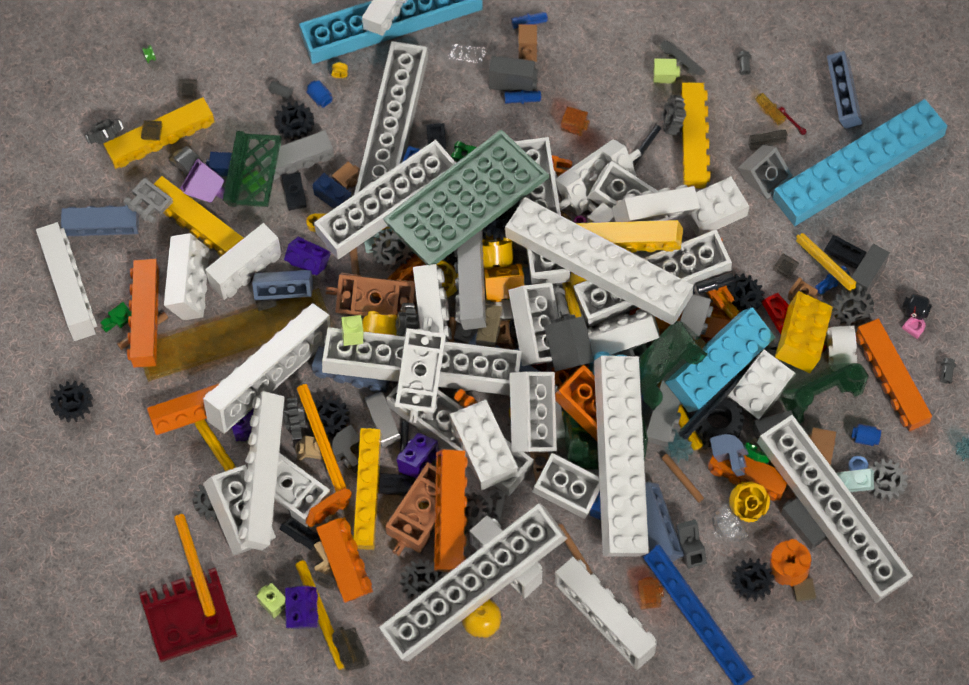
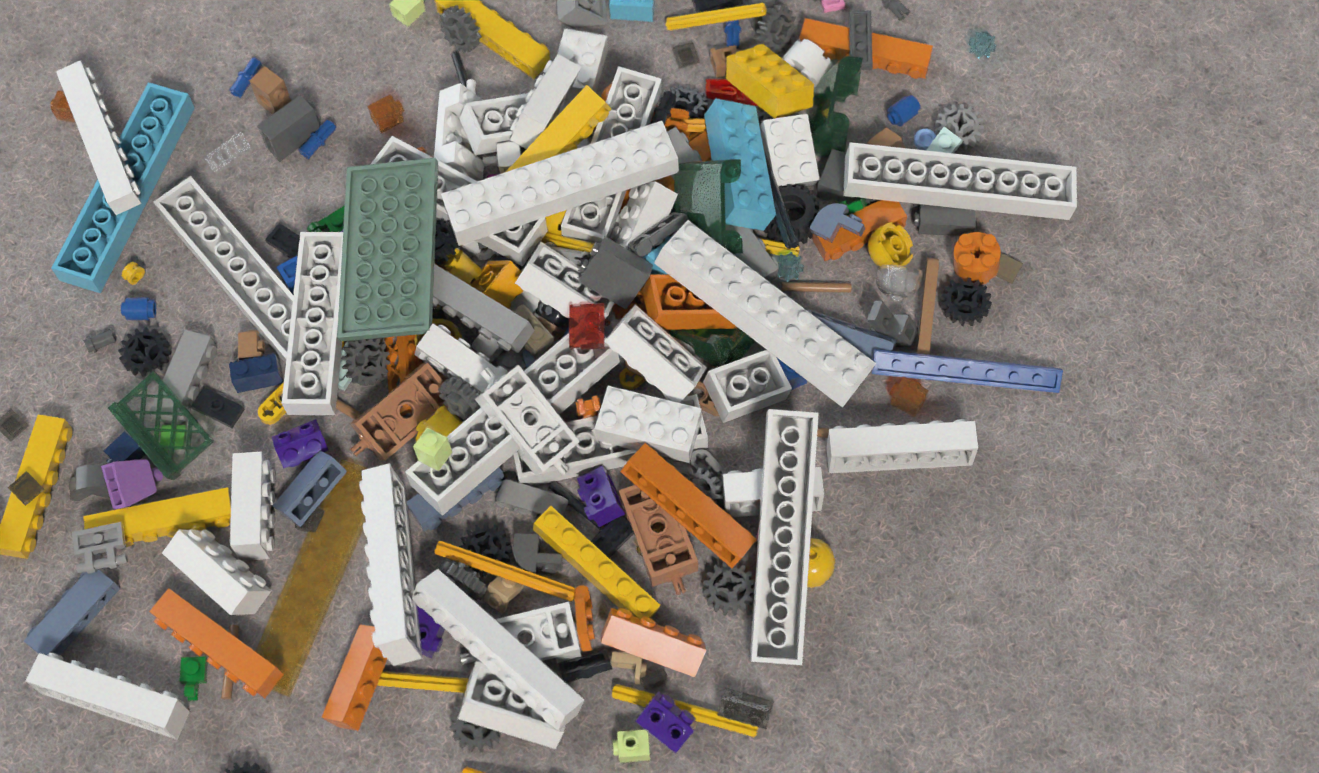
camera: 50 degrees left, 0 degrees up
(514, 355) = (587, 326): none -> clear red plate
(617, 347) = (656, 235): none -> dark grey hinge
(728, 557) = (927, 308): none -> medium nougat beam
(892, 365) = (861, 36): none -> dark grey tile

